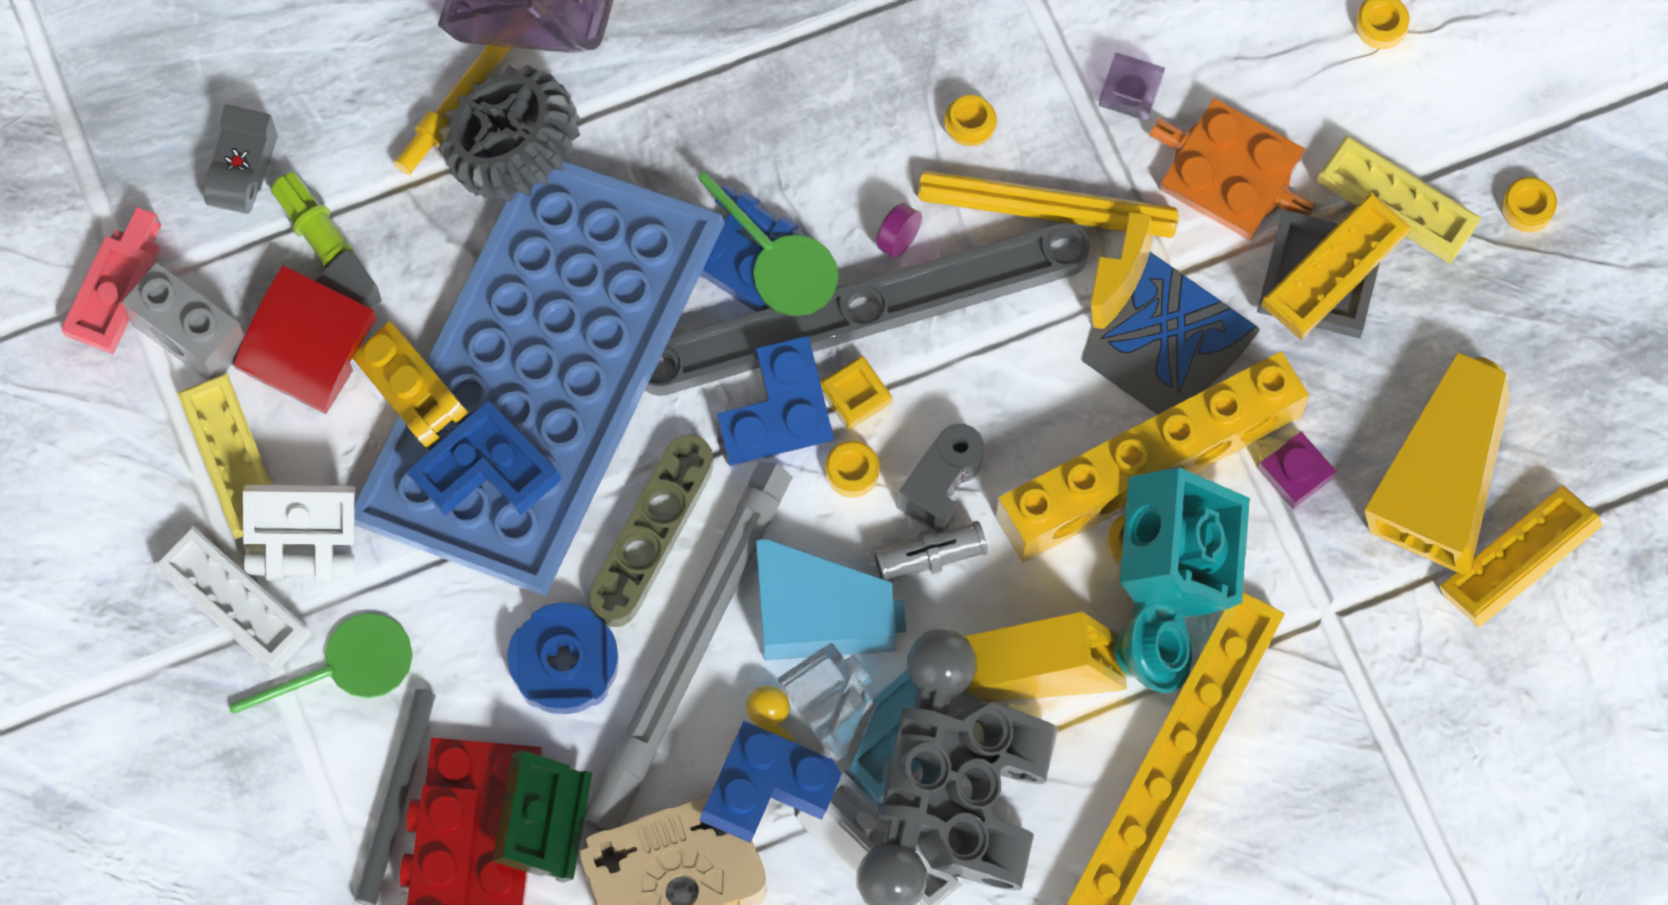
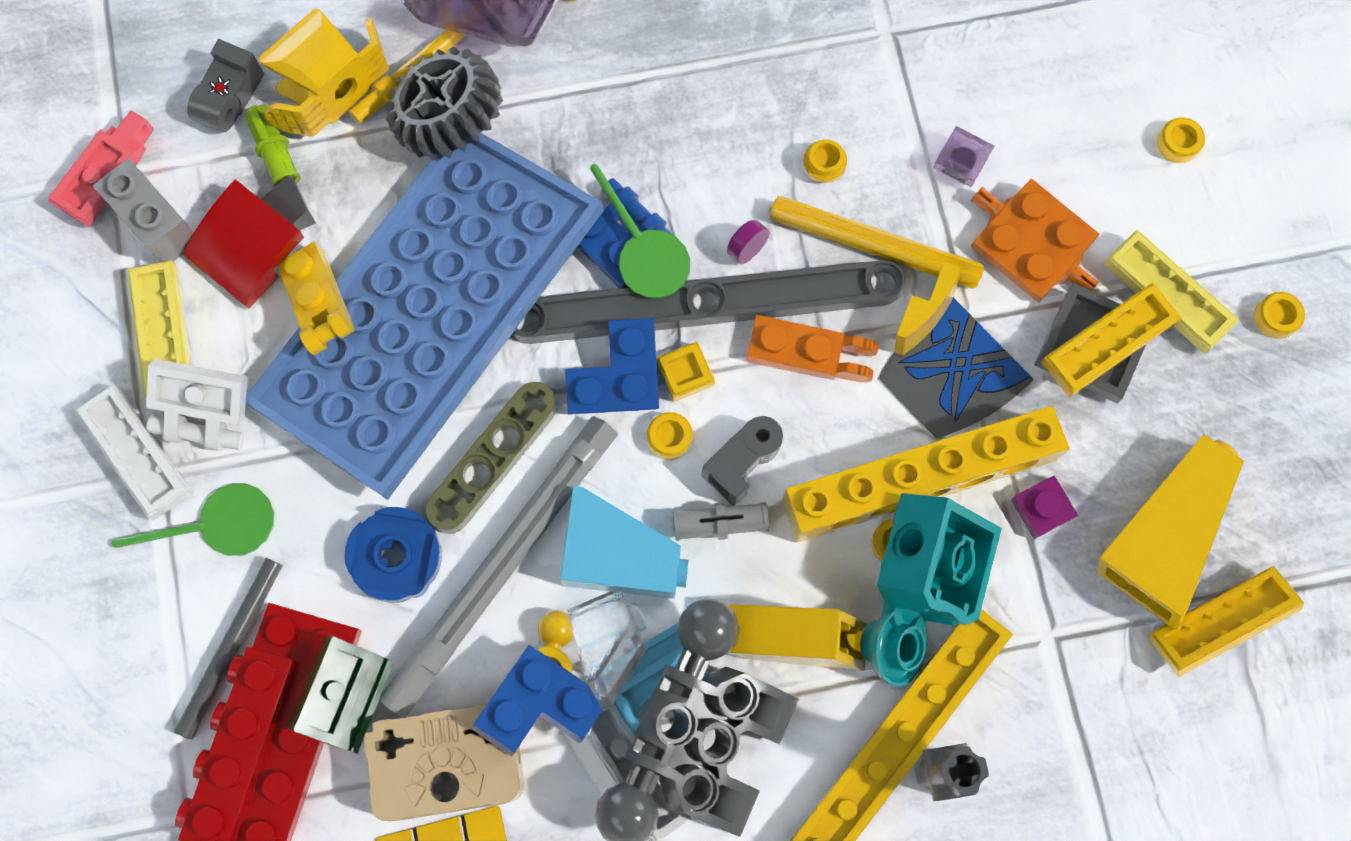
camera: 10 degrees right, 5 degrees up
(344, 122) = (318, 69): none -> yellow piece
(479, 451) = (358, 367): blue plate -> none
(994, 342) = (808, 350): none -> orange hinge
(1237, 763) = (951, 772): none -> dark grey piece

